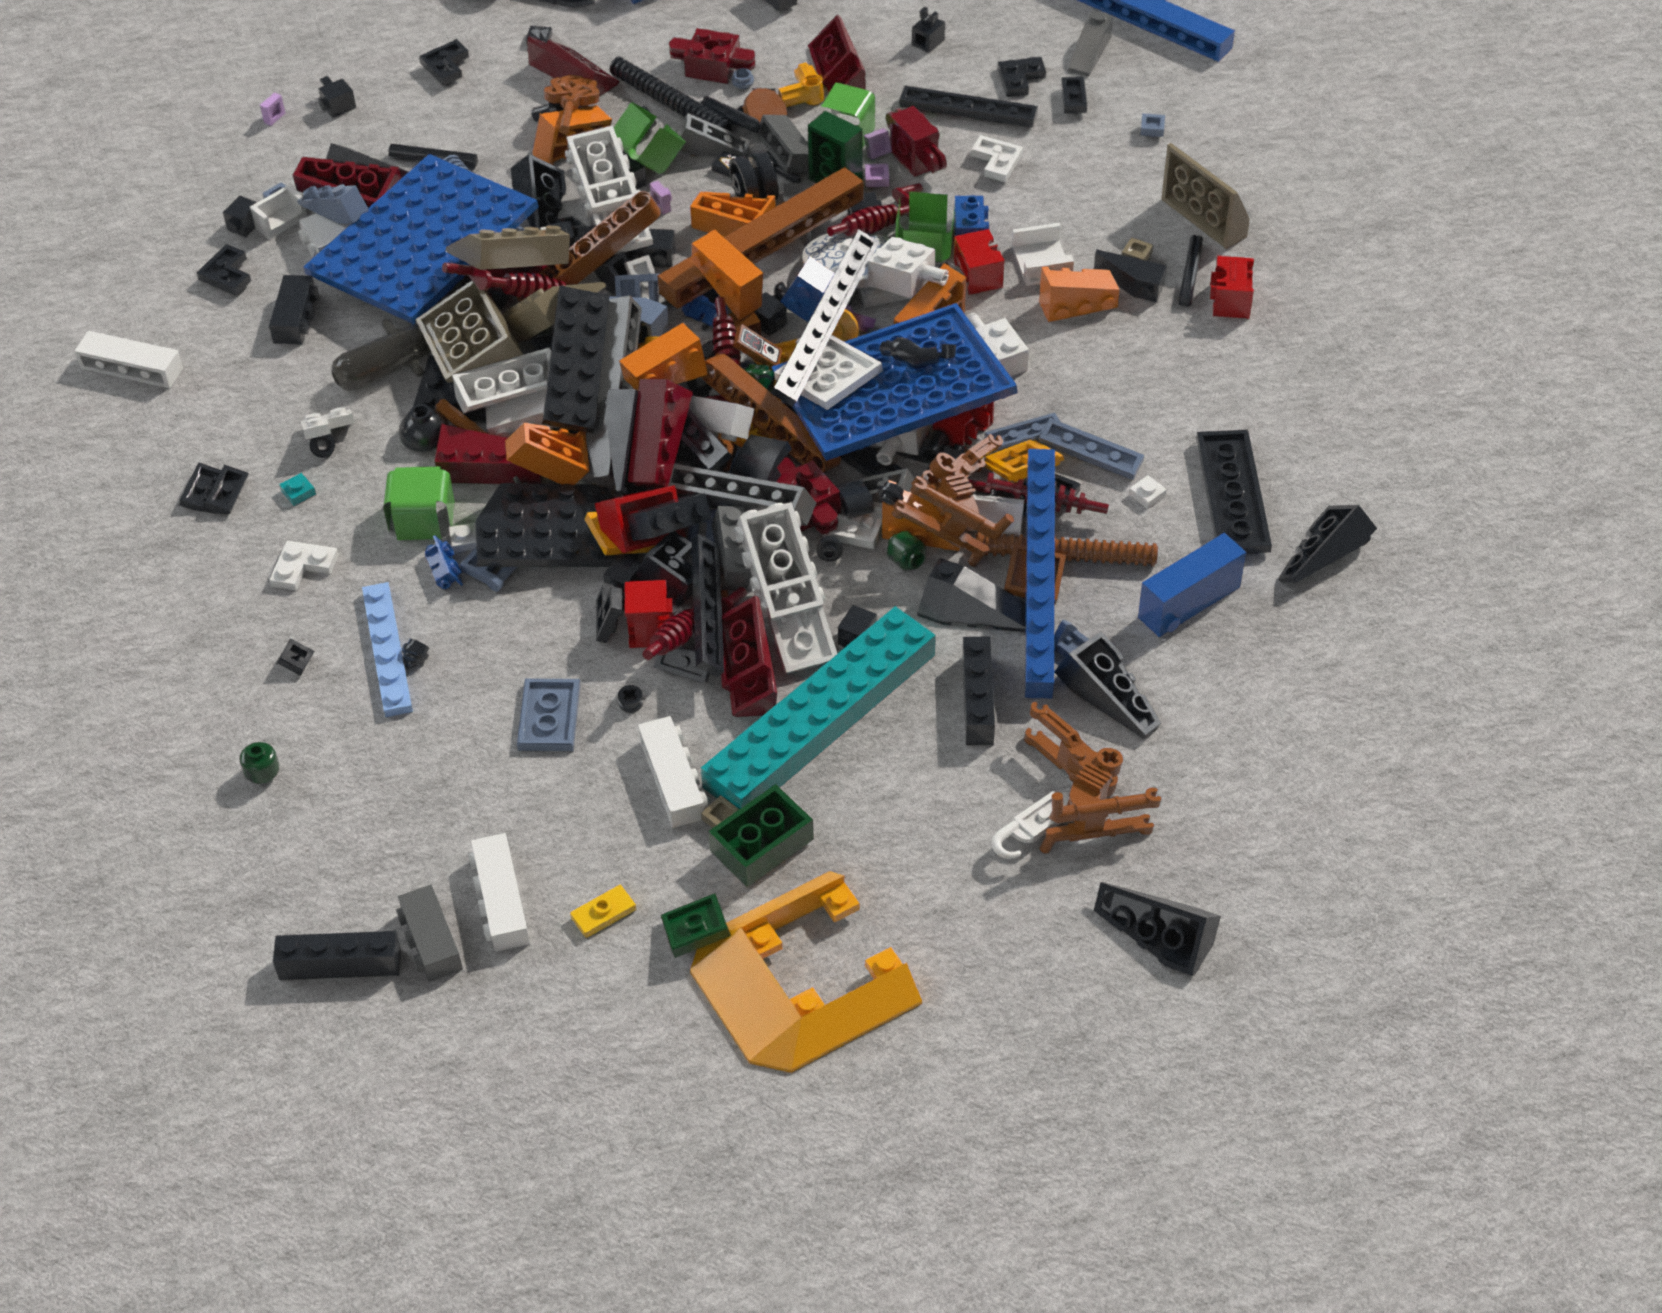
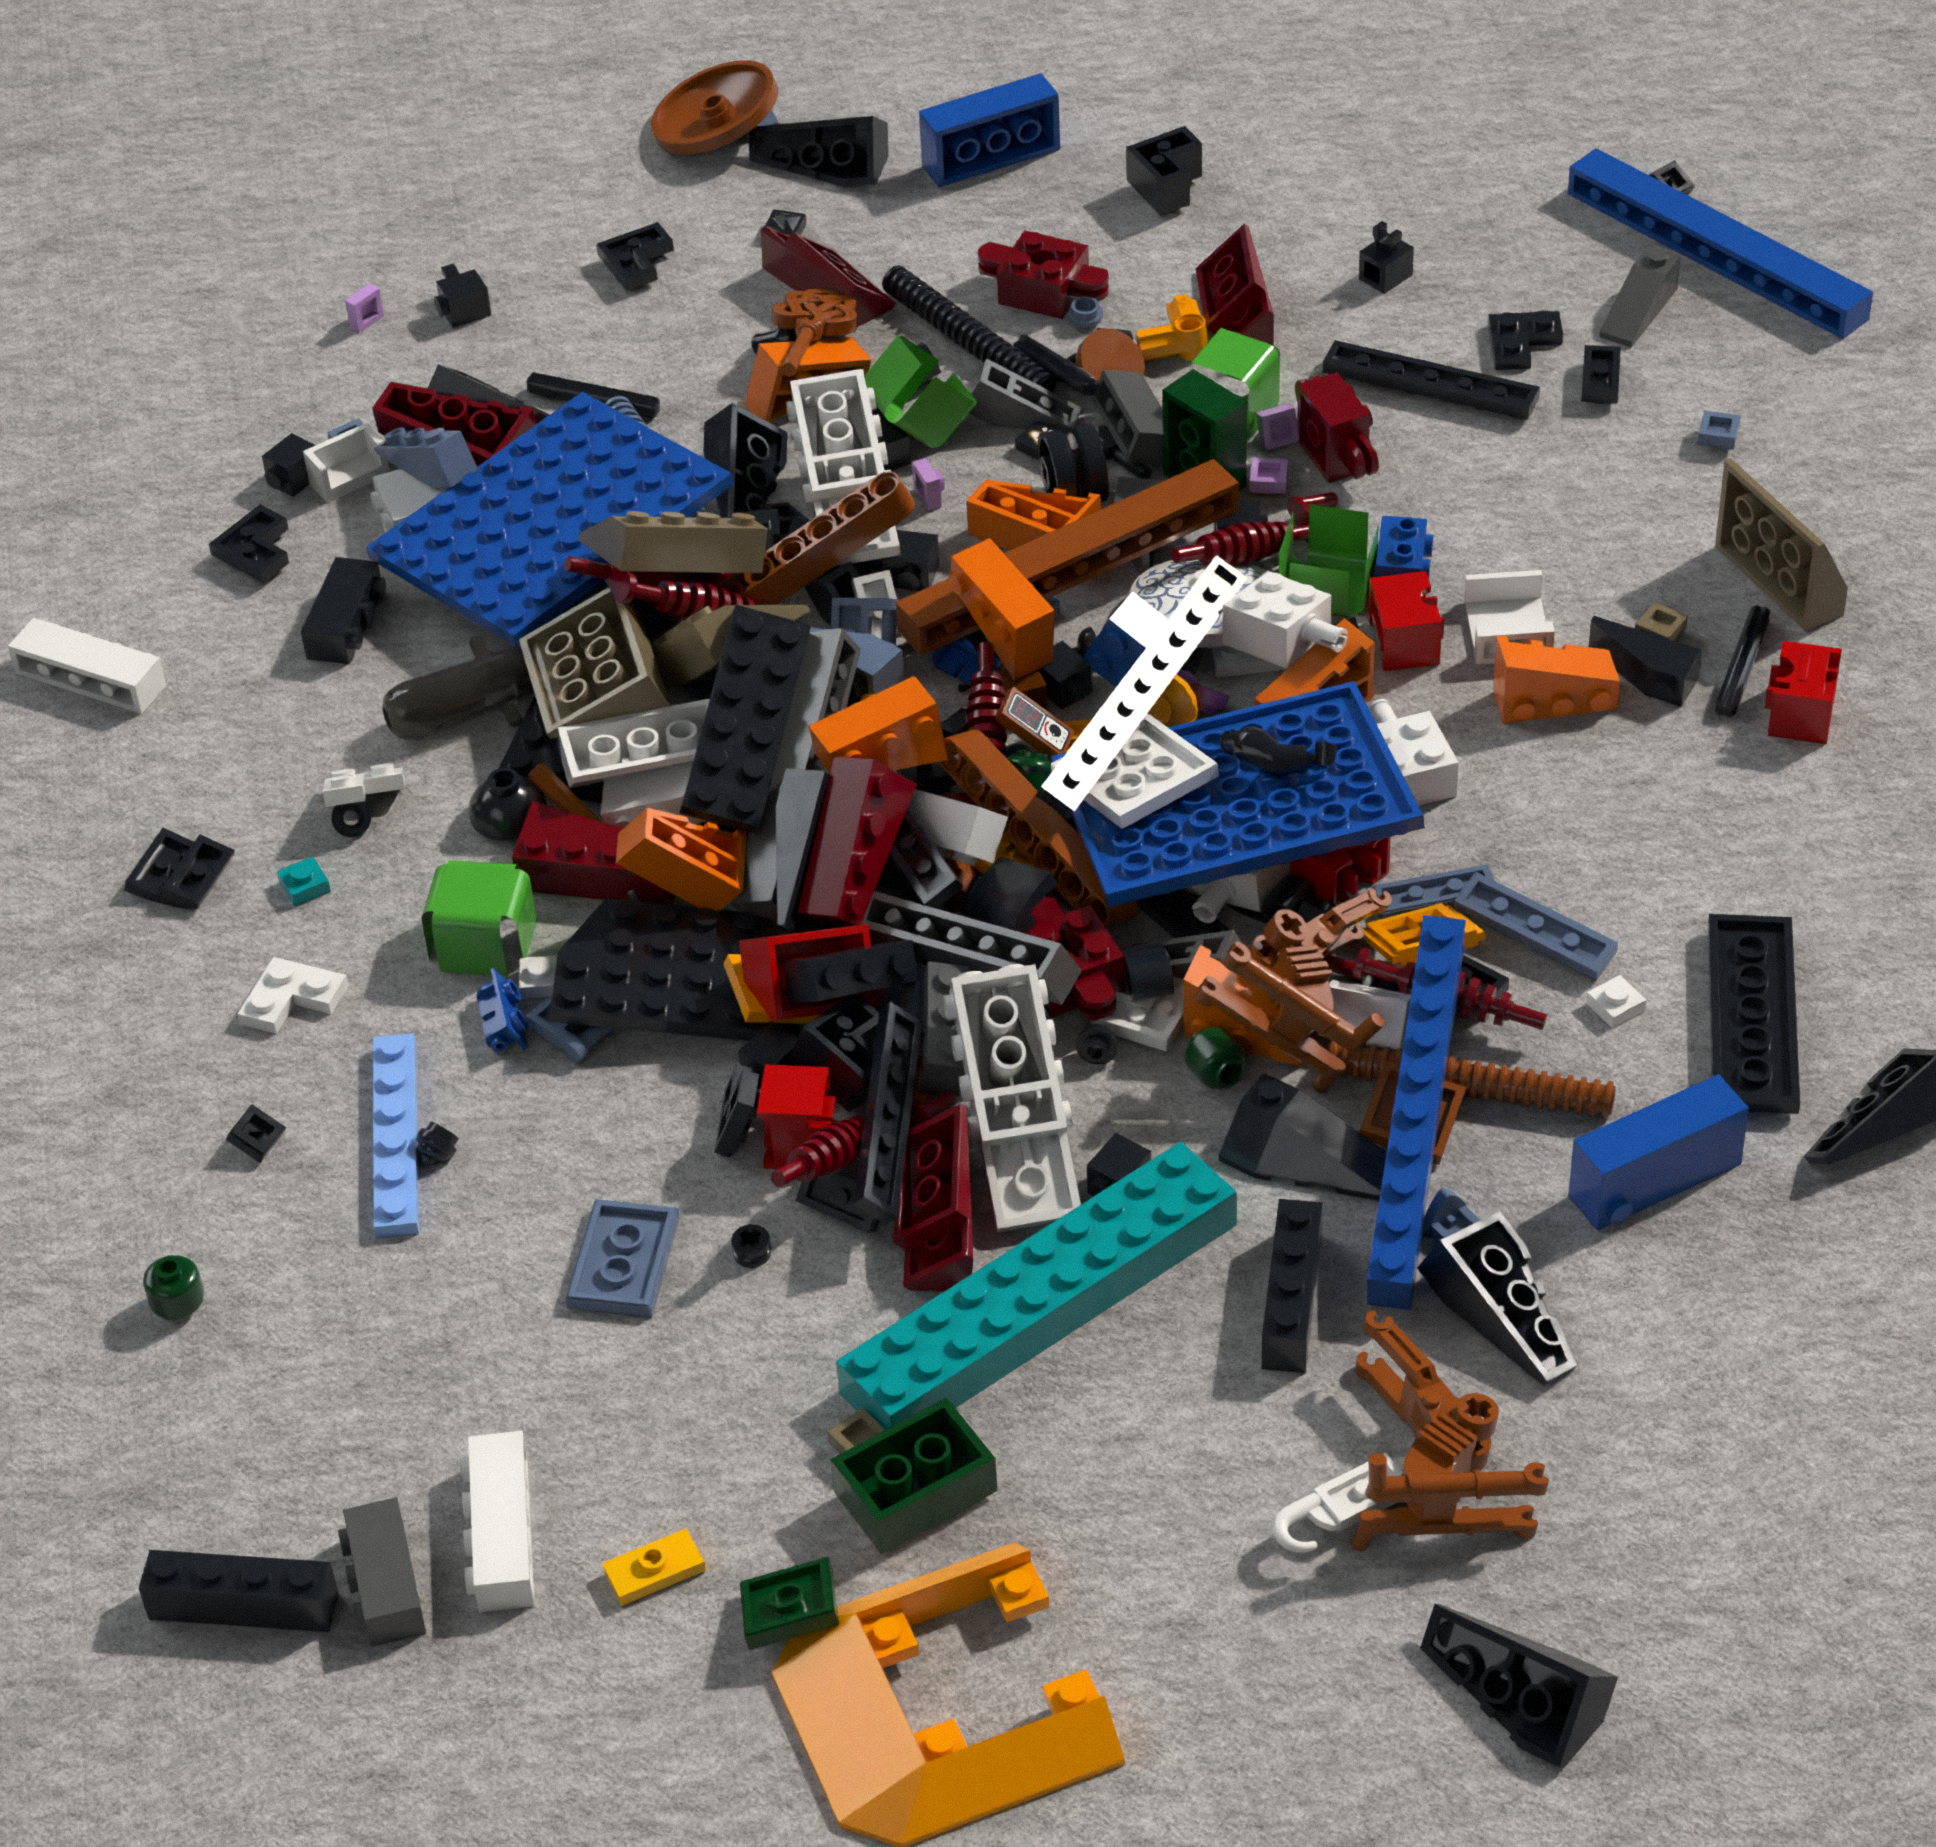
camera: 10 degrees right, 5 degrees down
(672, 772) = (794, 1363): white brick -> none
(890, 493) = (1197, 965): black plate -> none
(1001, 157) = (1468, 460): white plate -> none

